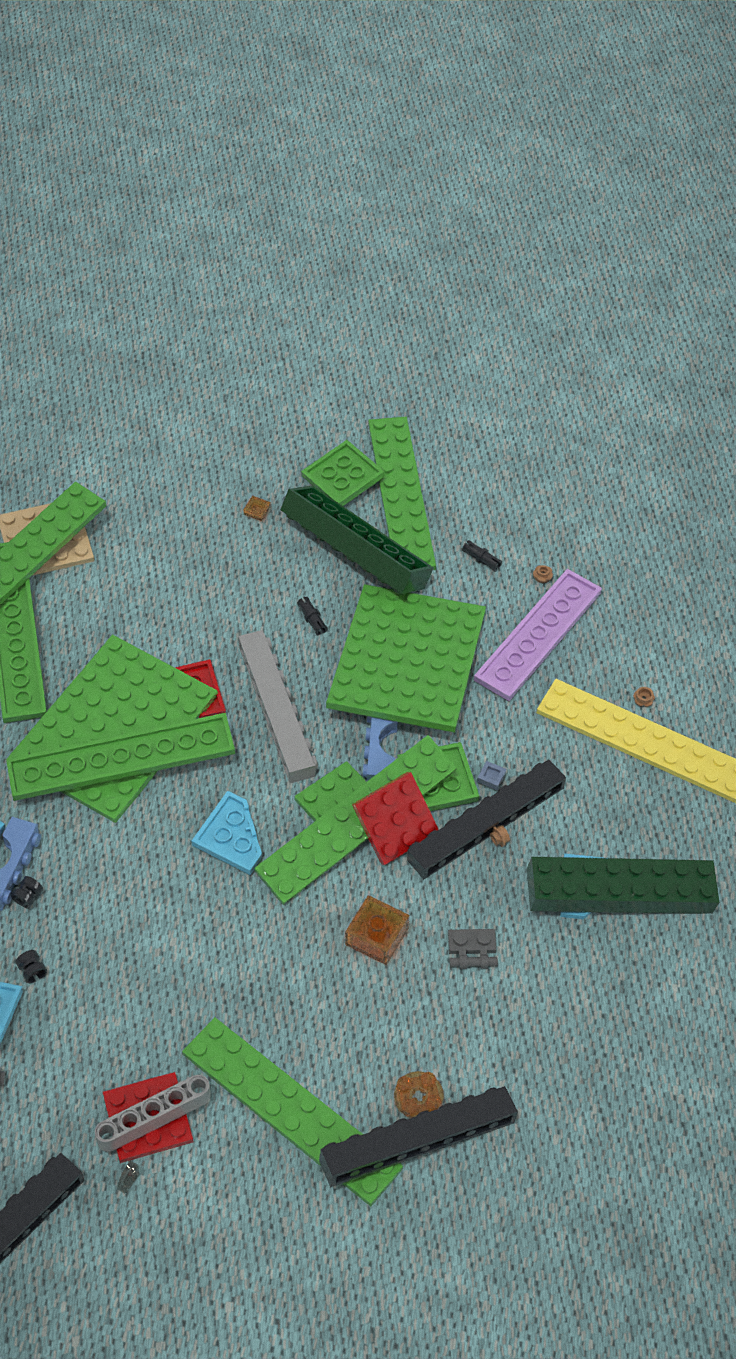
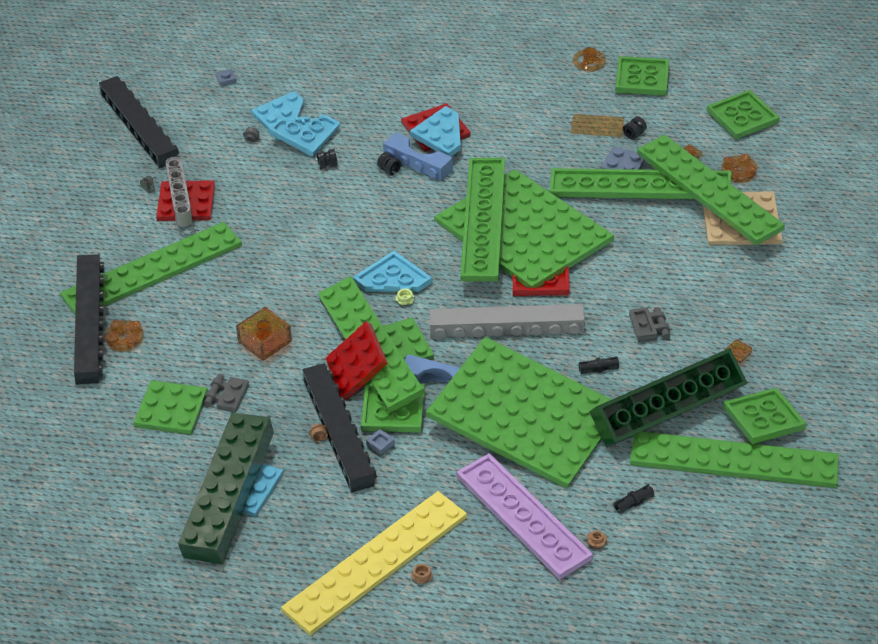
camera: 110 degrees right, 10 degrees down
(241, 588) = (643, 324): none -> dark grey plate
(262, 808) = (404, 297): none -> yellowish green plate
(514, 999) = (170, 407): none -> bright green plate

